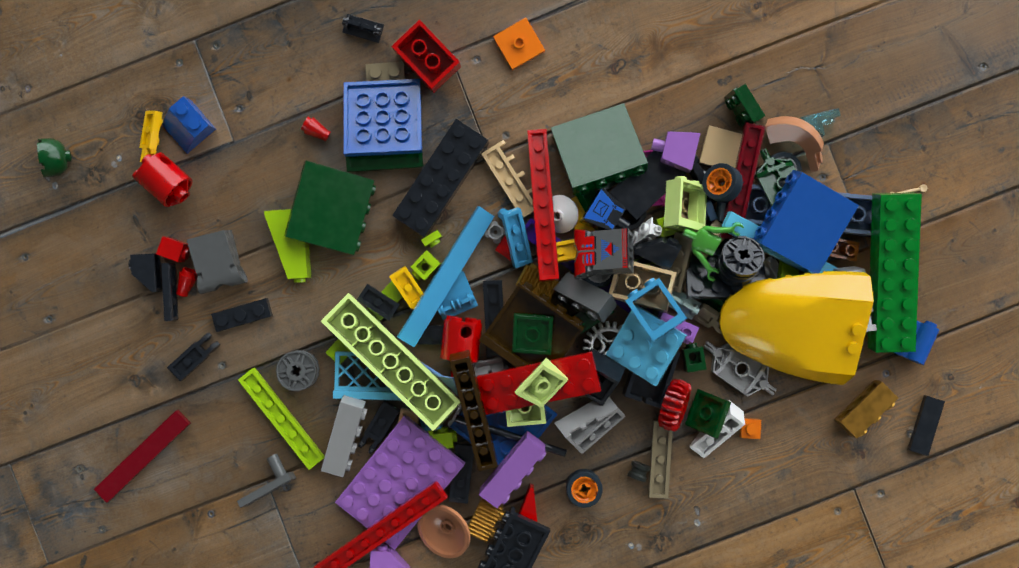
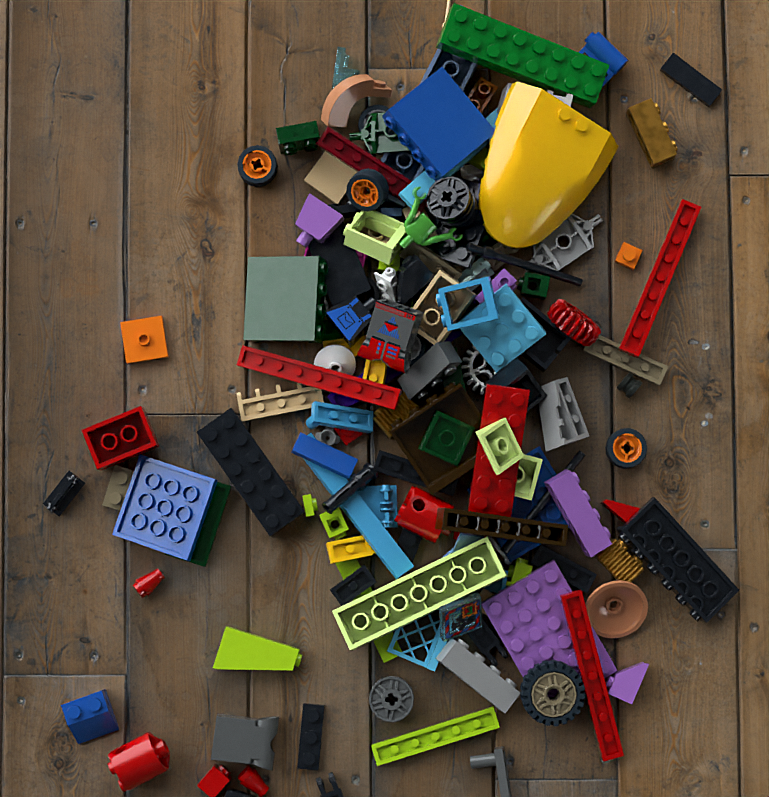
camera: 70 degrees left, 5 degrees down
(150, 133) = (85, 759): yellow hinge -> none
(330, 208) = (236, 598): dark green panel -> none
(351, 518) = (554, 709): none -> wheel
(385, 403) = (460, 617): none -> tile
(467, 270) = (356, 483): none -> black pin
(478, 235) = (324, 455): none -> blue tile
(491, 365) = (463, 490): light grey hinge -> none
(698, 87) = (260, 176): none -> wheel
(705, 444) = (615, 287): white slope -> none
(707, 309) = (488, 253): none -> black bar
(707, 413) = (595, 292): dark green tile -> none
(741, 463) = (659, 278): none -> red plate

